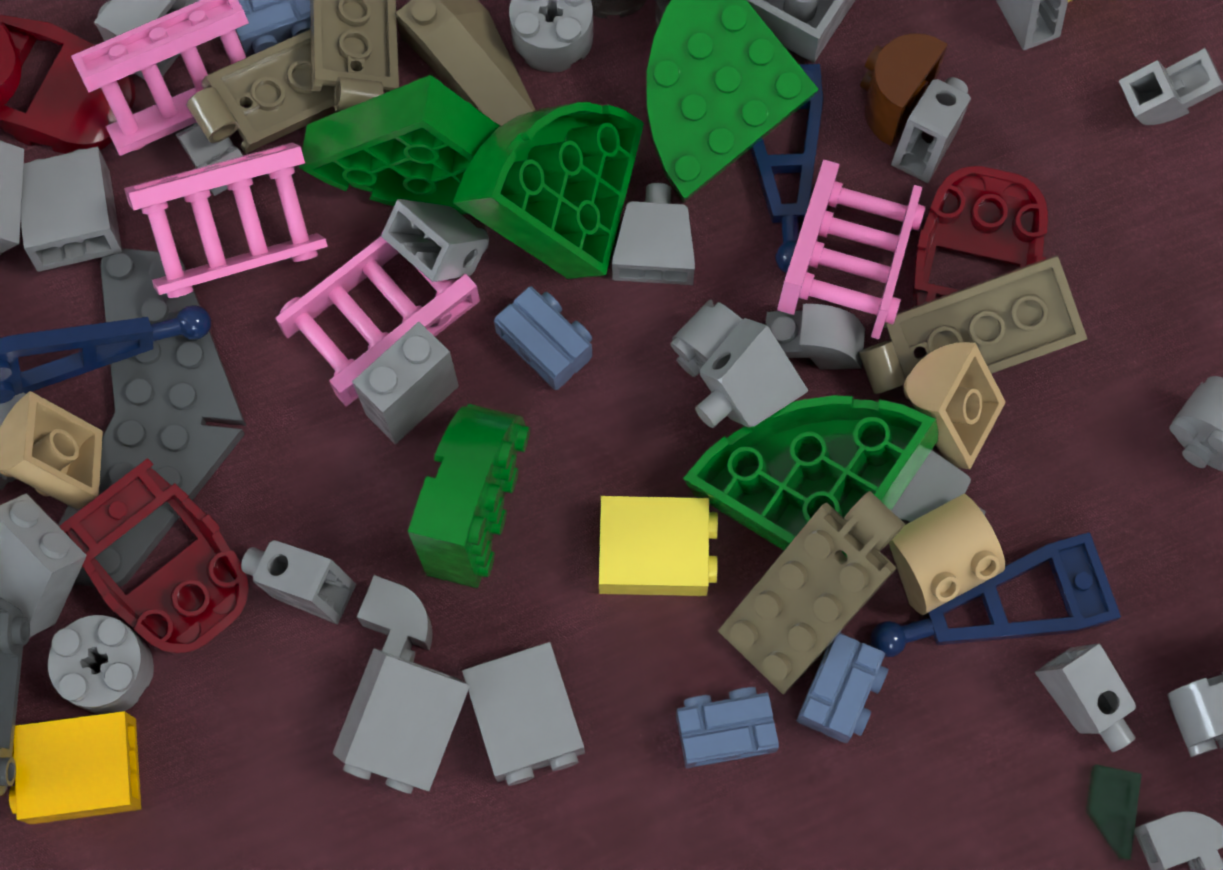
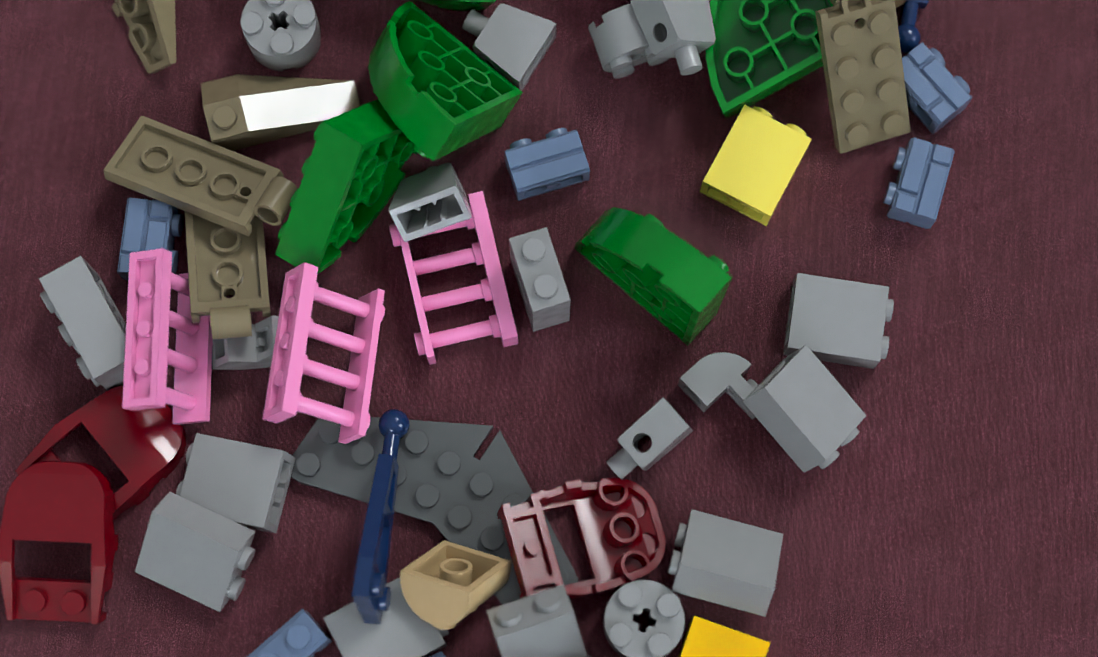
camera: 65 degrees left, 5 degrees up
(196, 717) = (726, 562): none -> light grey brick

